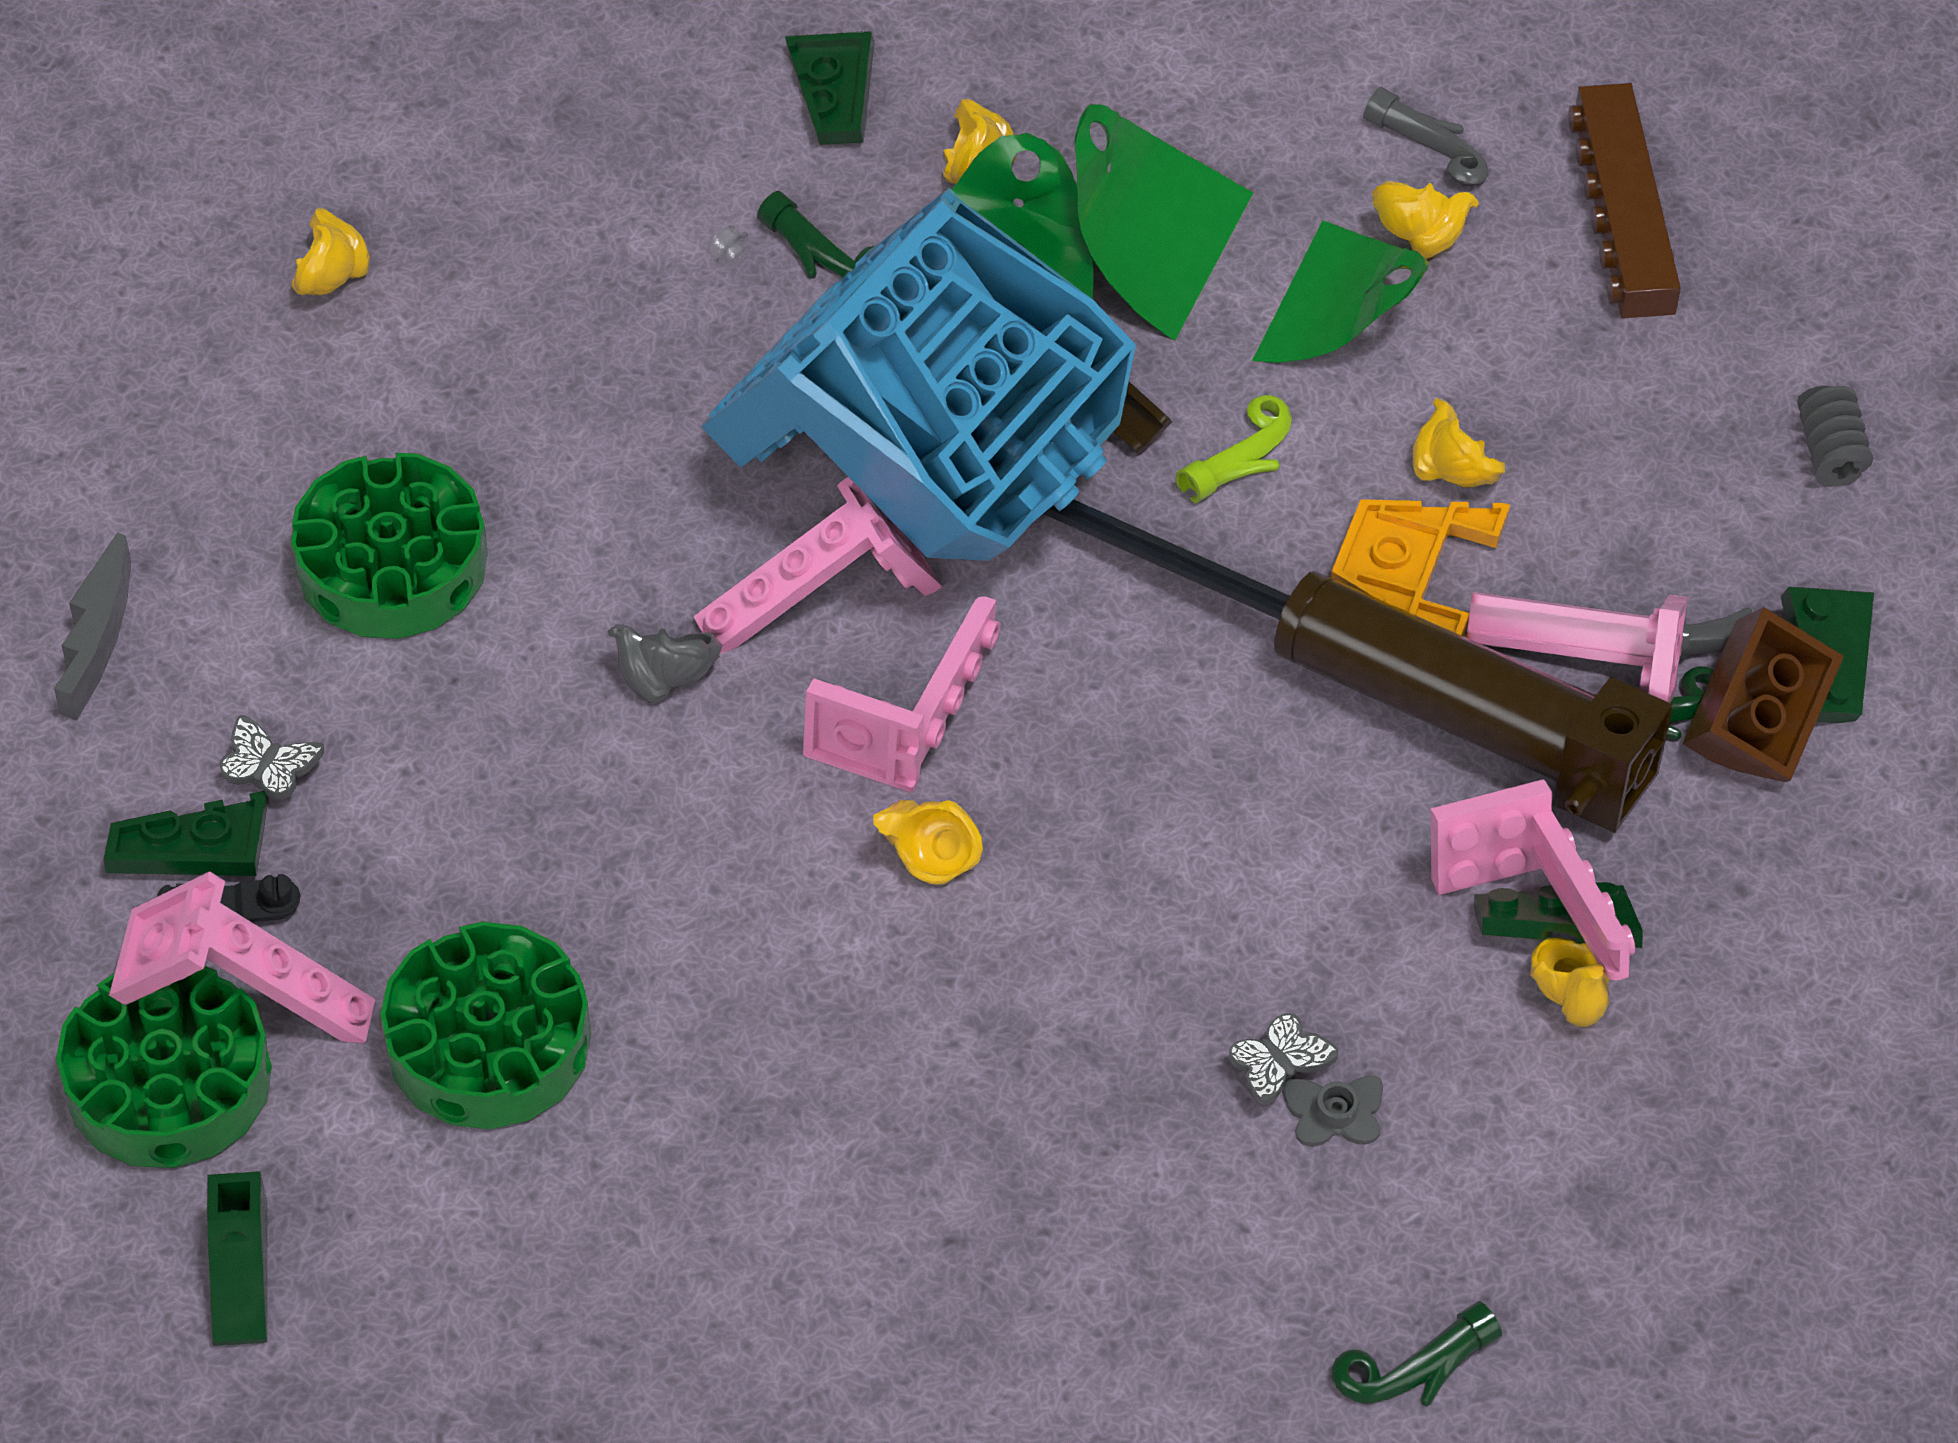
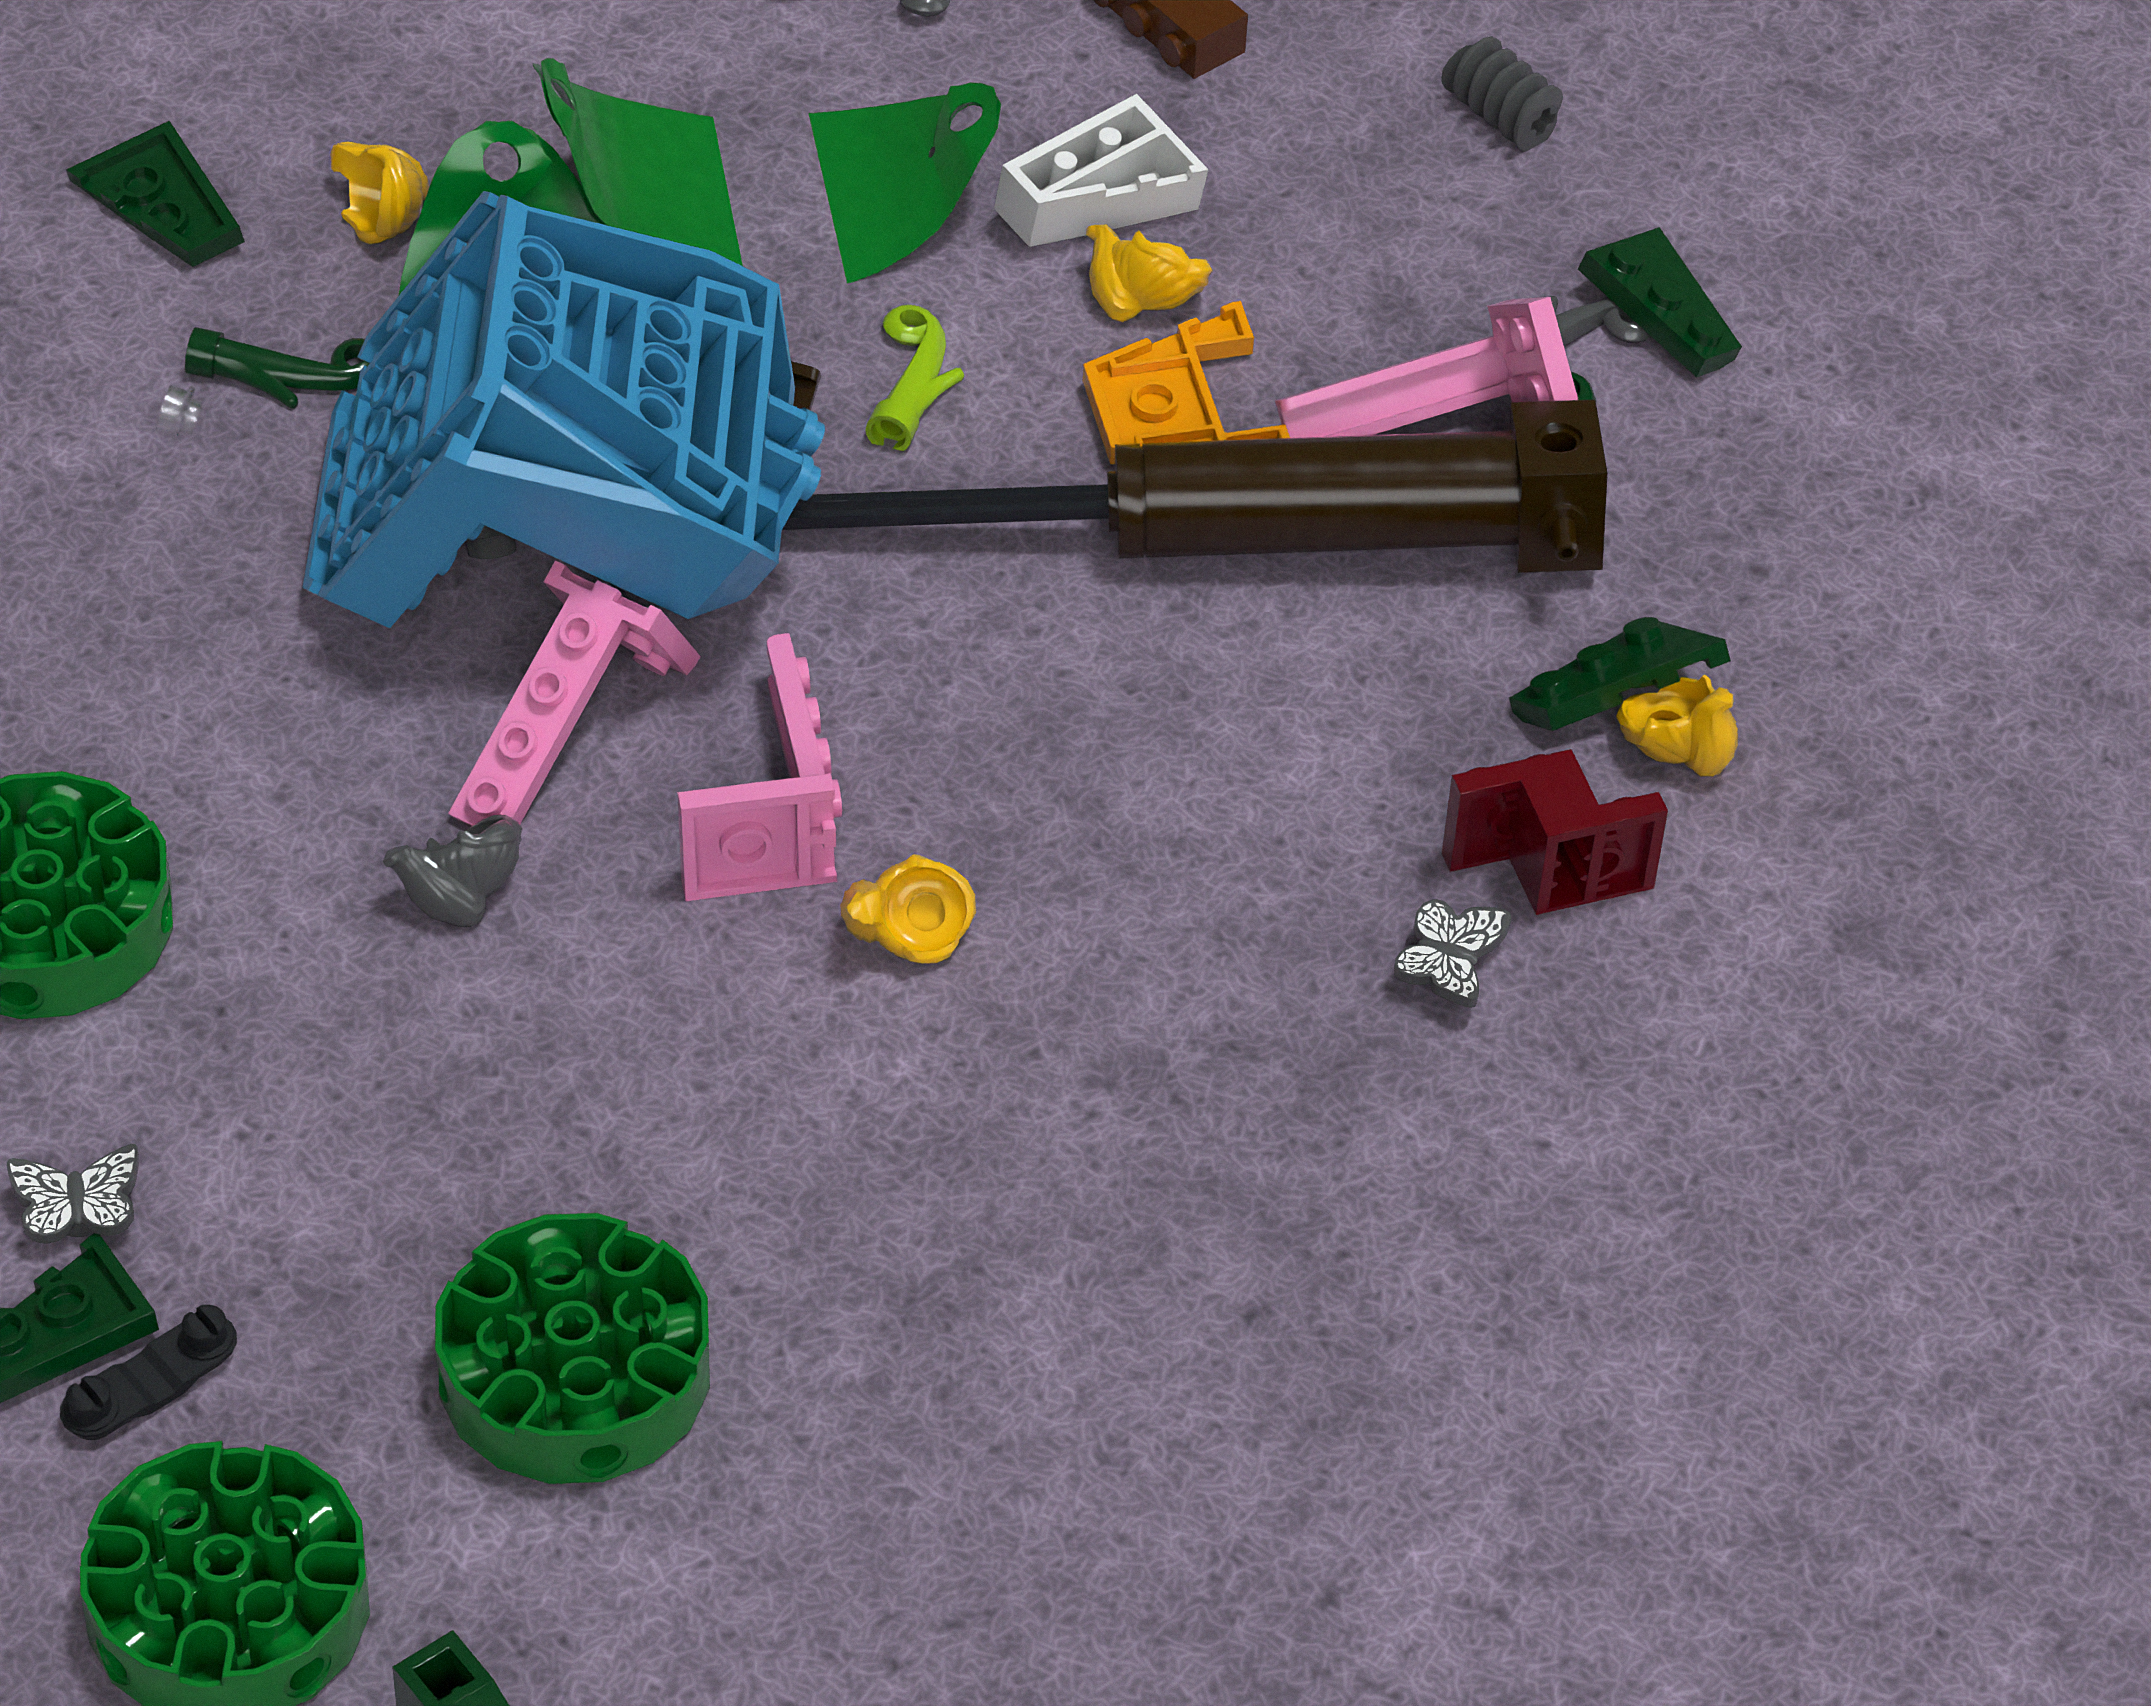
camera: 35 degrees left, 5 degrees down
(189, 924) = (192, 1397): bright pink bracket -> none
(1335, 1109) = (1542, 980): dark grey animal -> none
(1407, 991) = (1553, 831): none -> dark red bracket
(1422, 215) = (918, 57): yellow hair -> none
(1434, 1363) = (1842, 1174): dark green plant -> none
(1477, 363) = (1104, 171): none -> white wedge
(1517, 834) = (1522, 604): bright pink bracket -> none
(1763, 697) = (1648, 366): reddish brown slope -> none

